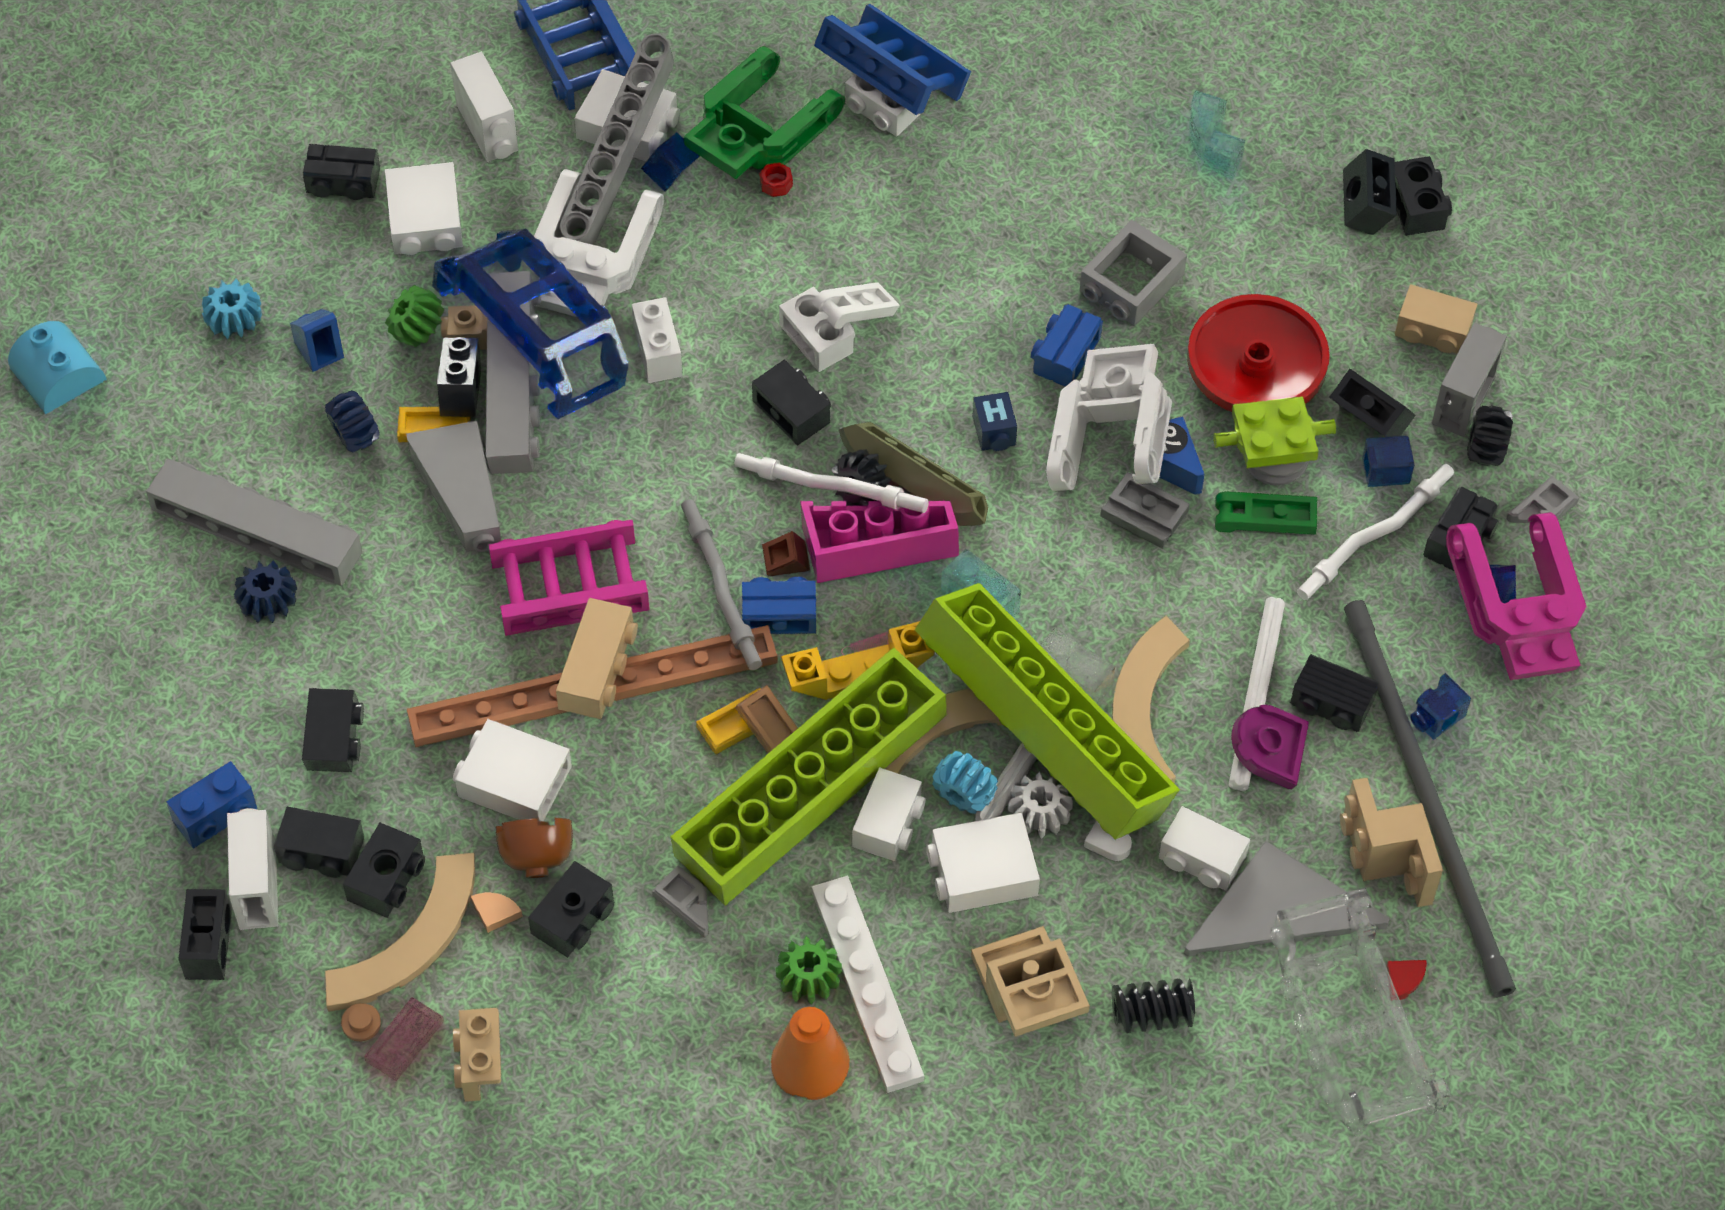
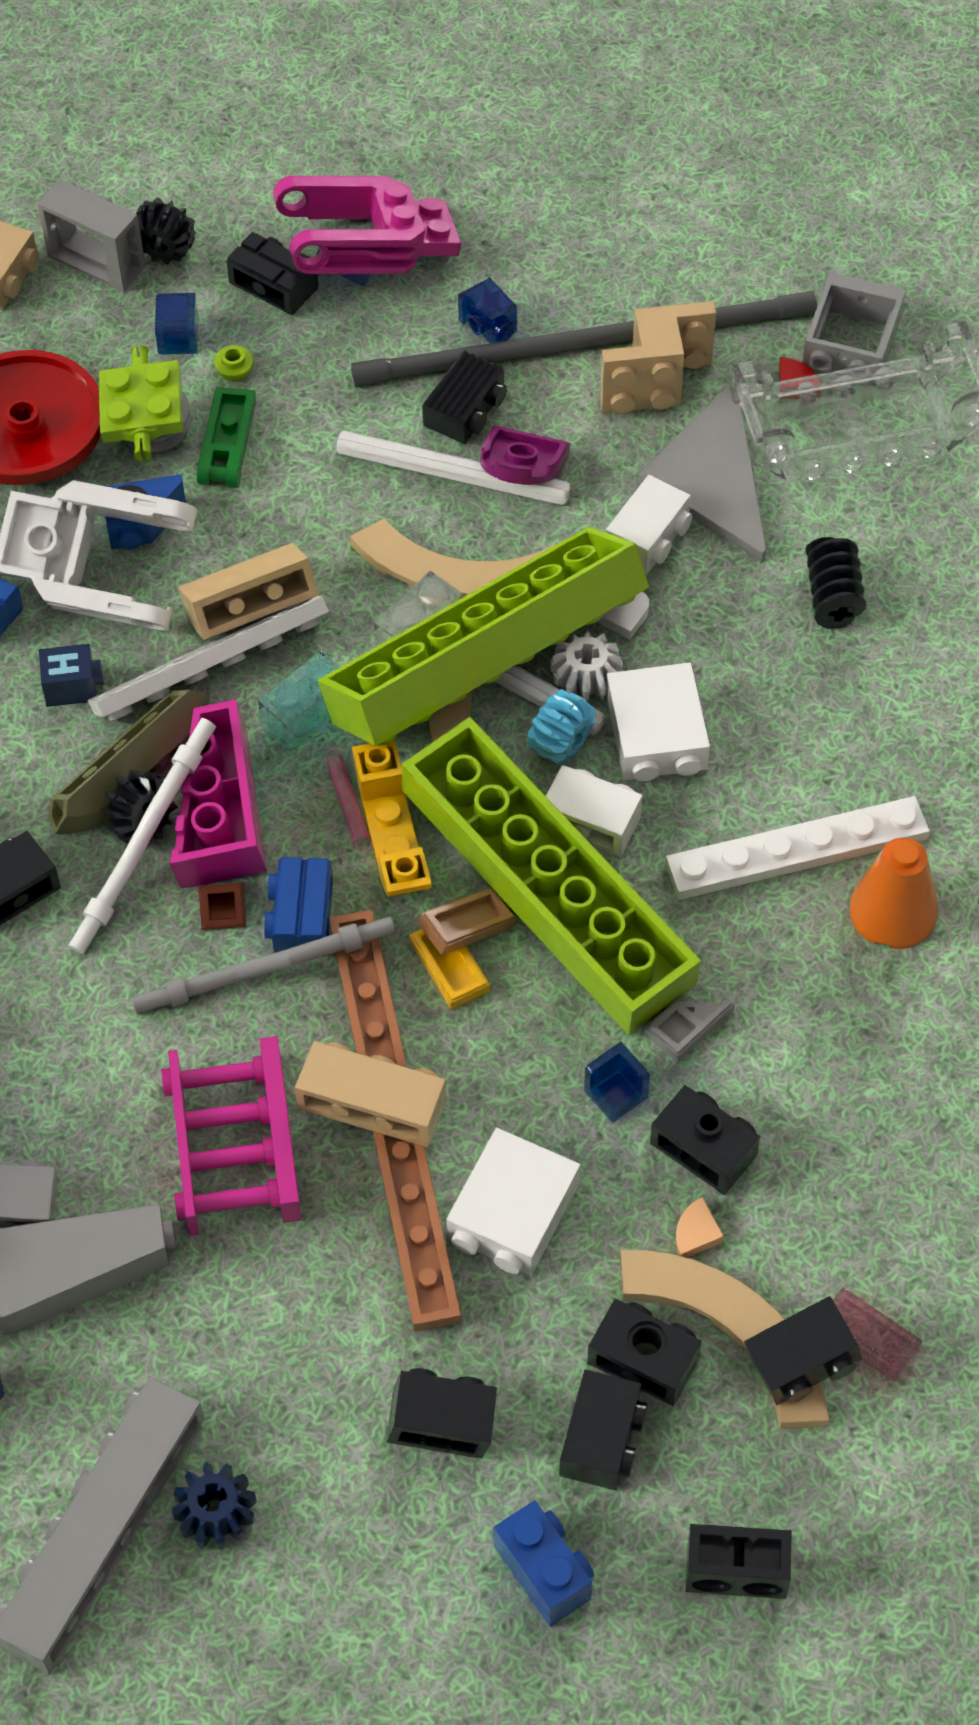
camera: 85 degrees left, 0 degrees up
(252, 869) = (648, 1497): white brick -> none
(361, 1022) = (854, 1387): medium nougat plate -> none
(371, 973) = (804, 1351): none -> black brick
(479, 1051) = (901, 1238): tan bracket -> none
(534, 845) = (623, 1166): dark orange cylinder -> none
(624, 843) = (616, 1082): none -> clear blue panel
(802, 983) = (802, 901): bright green gear -> none
(1030, 981) = (815, 679): tan bracket -> none
(1031, 529) = (193, 665): none -> white plate
(1090, 538) = (248, 591): none -> tan brick
(1145, 510) = (211, 546): flat silver plate -> none
(1328, 568) = (303, 392): white bar -> none
(1351, 519) = (231, 369): none -> lime plate
(1371, 405) = (109, 323): black brick -> none
(1477, 994) = (843, 296): none -> light grey window
(1548, 497) = (240, 206): light grey tile -> none

